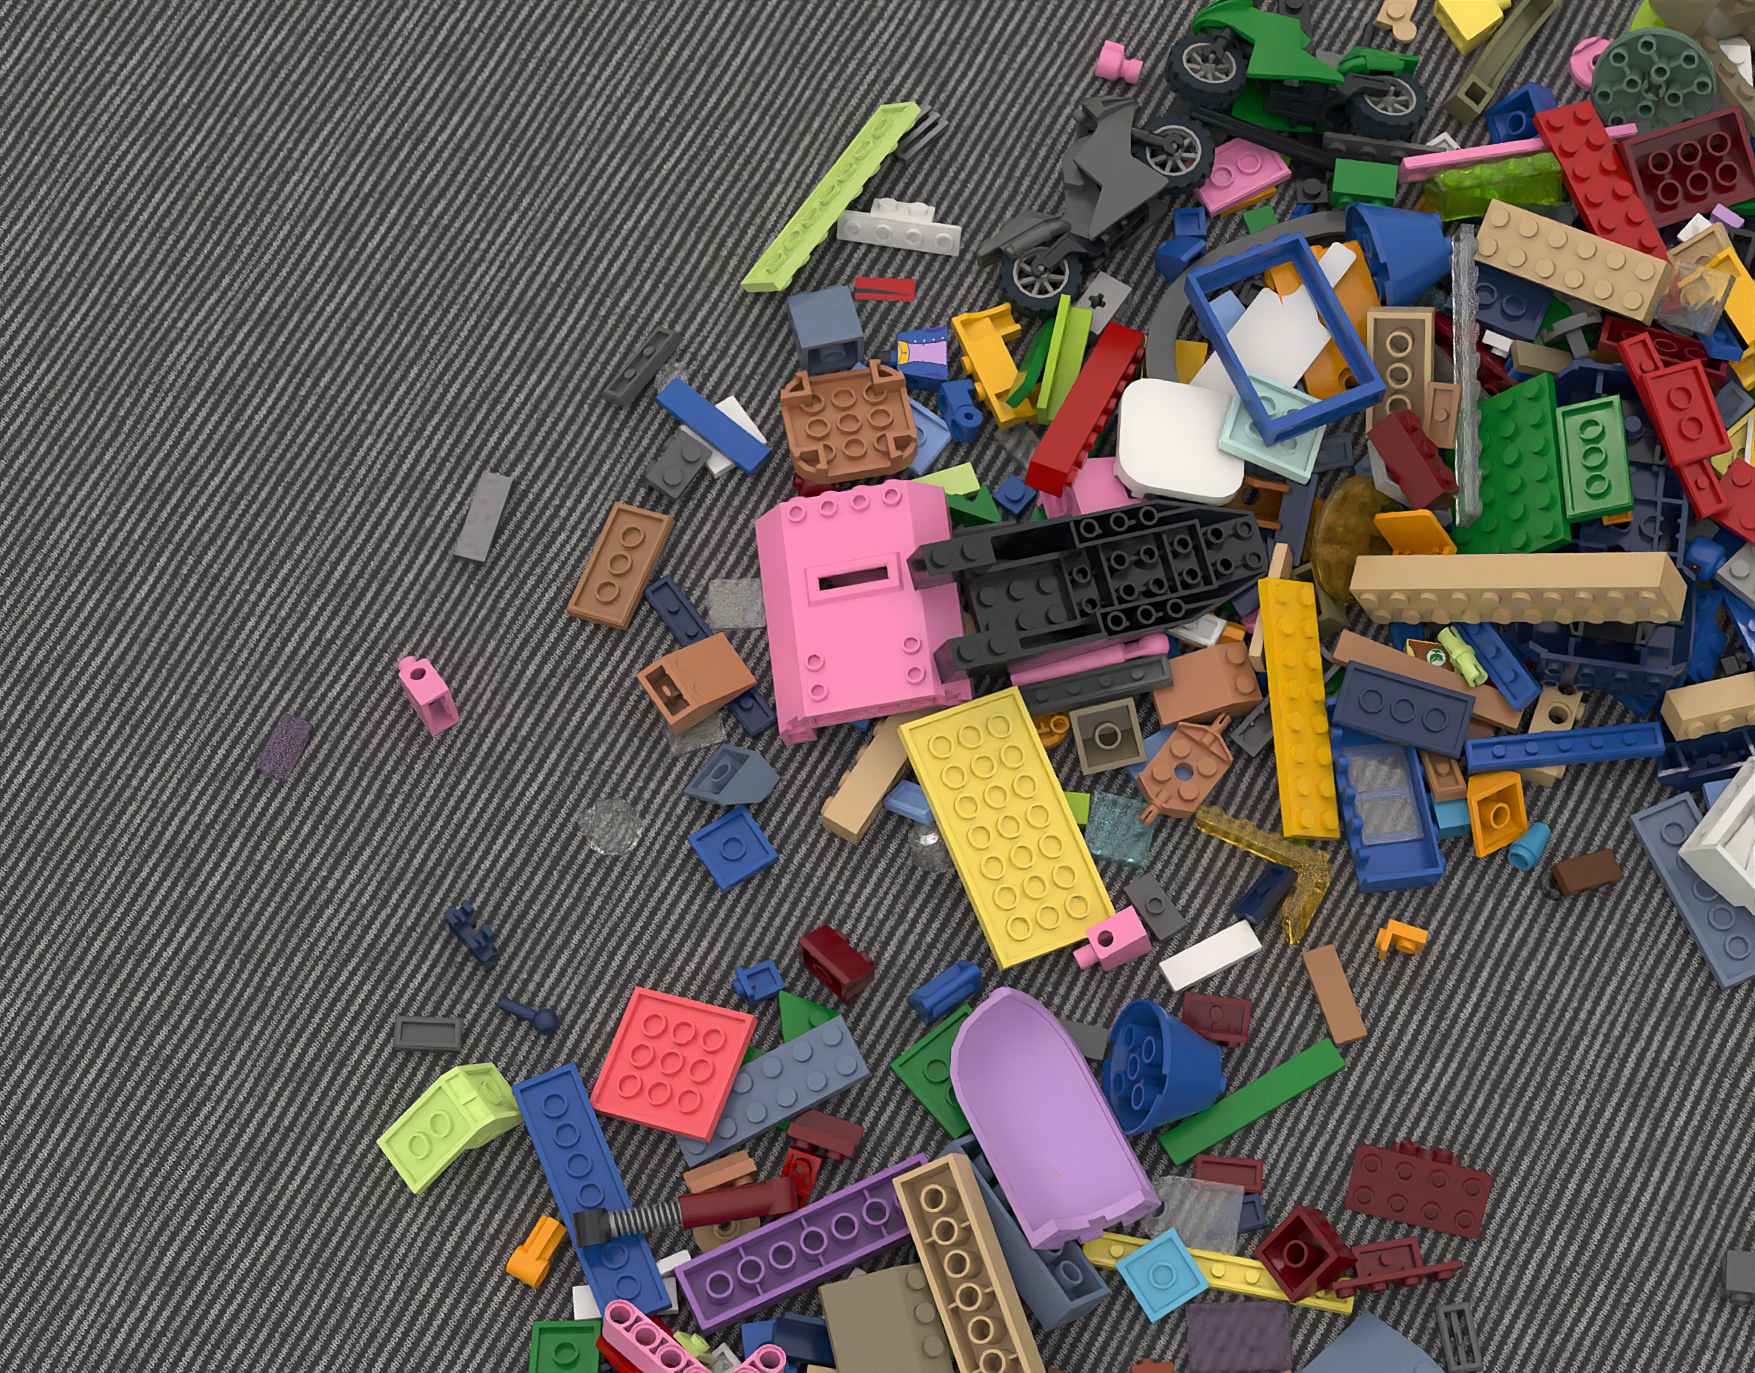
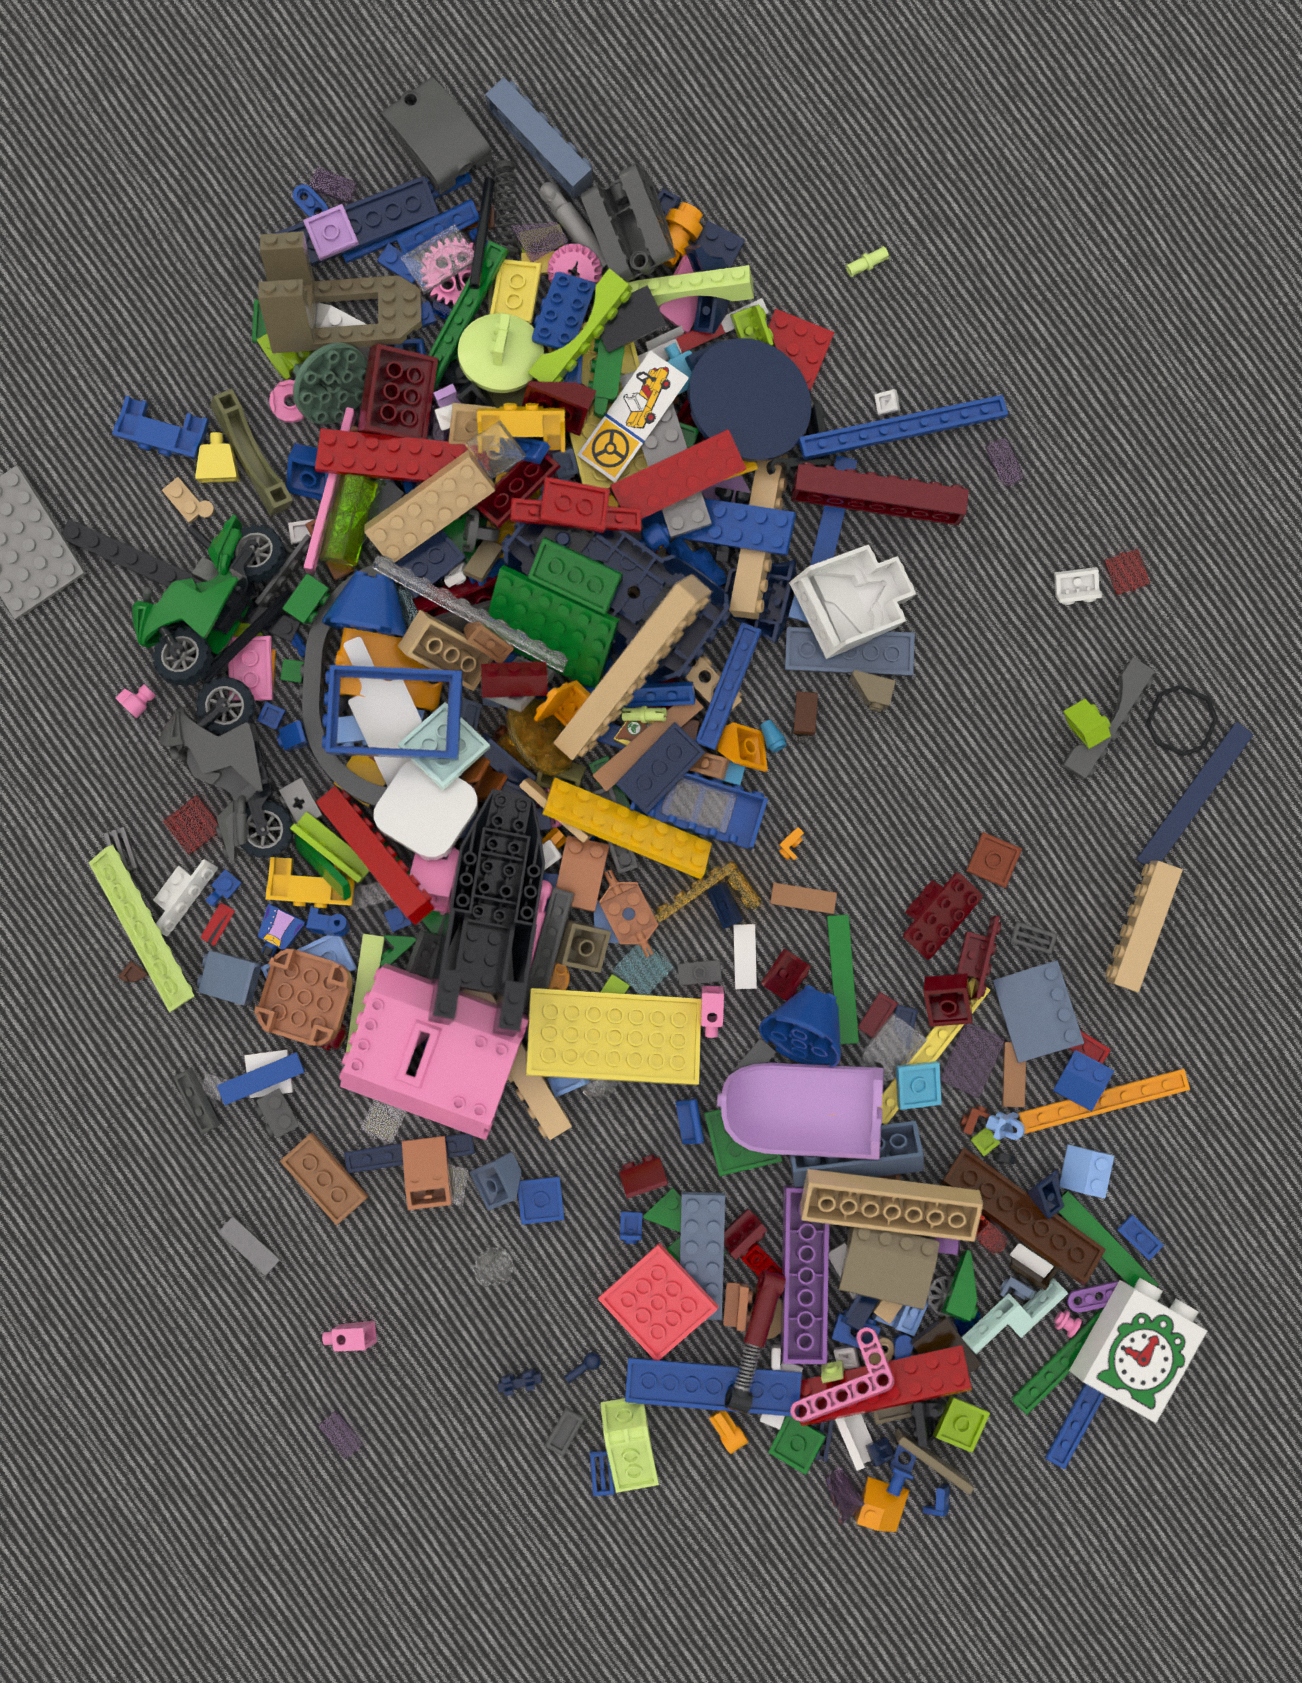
camera: 60 degrees left, 20 degrees up
(387, 1101) = (601, 1454): none -> blue tile
(767, 219) = (133, 973): none -> reddish brown tile
(938, 274) = (225, 886): none -> blue plate
(994, 198) = (192, 825): none -> clear red tile
(1536, 1228) = (993, 860): none -> copper tile
(1675, 943) = (873, 689): none -> dark tan slope

